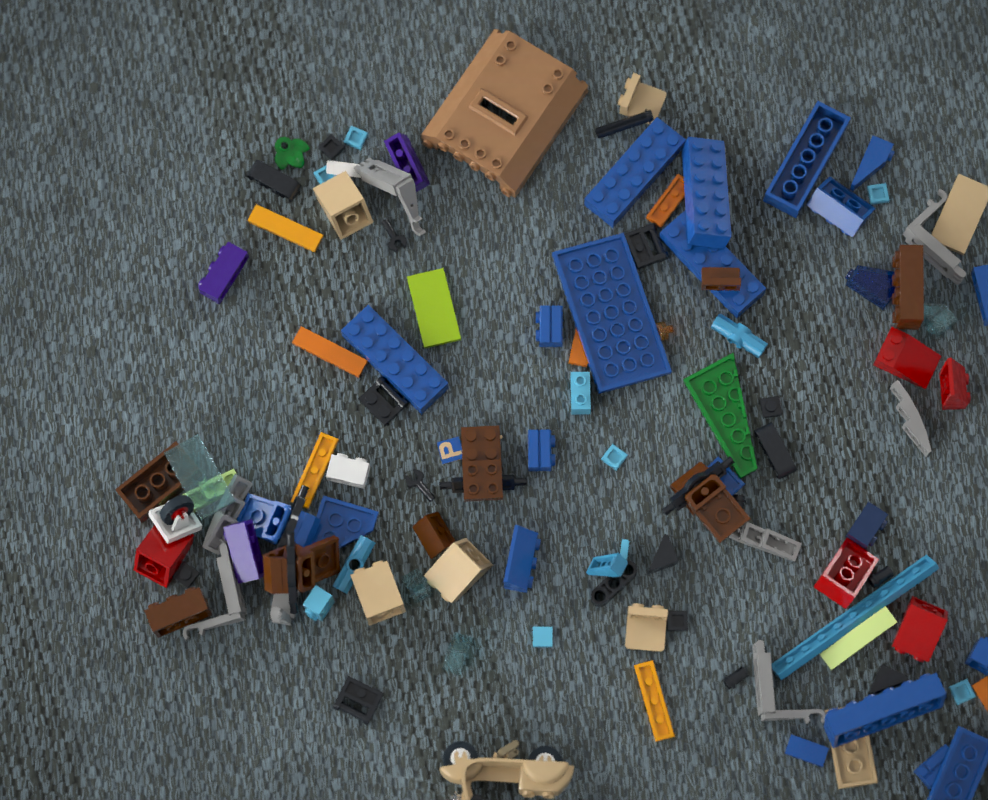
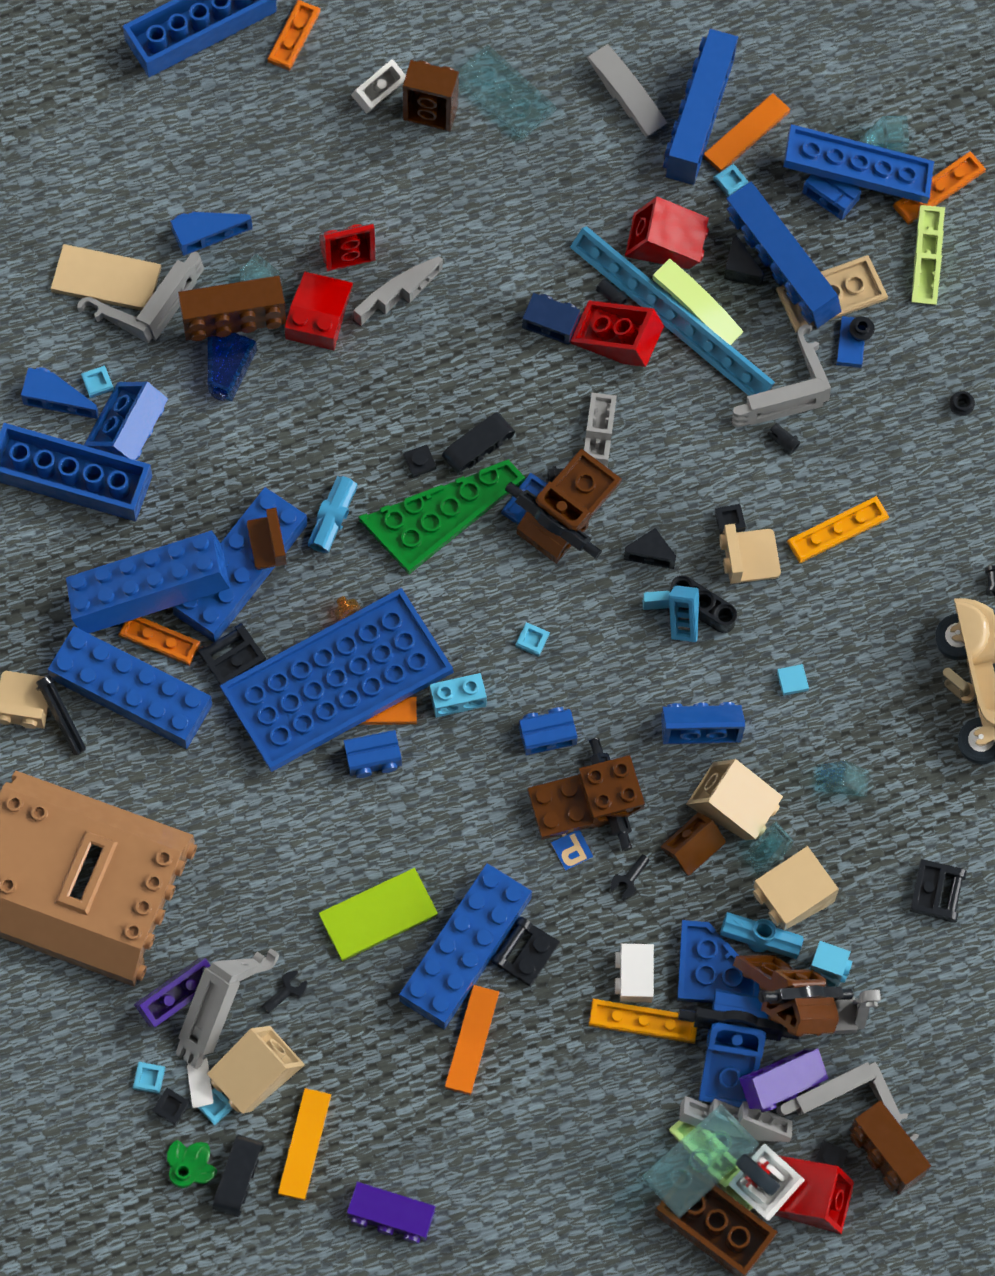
camera: 110 degrees left, 5 degrees down
(813, 751) = (861, 335): none -> black plate

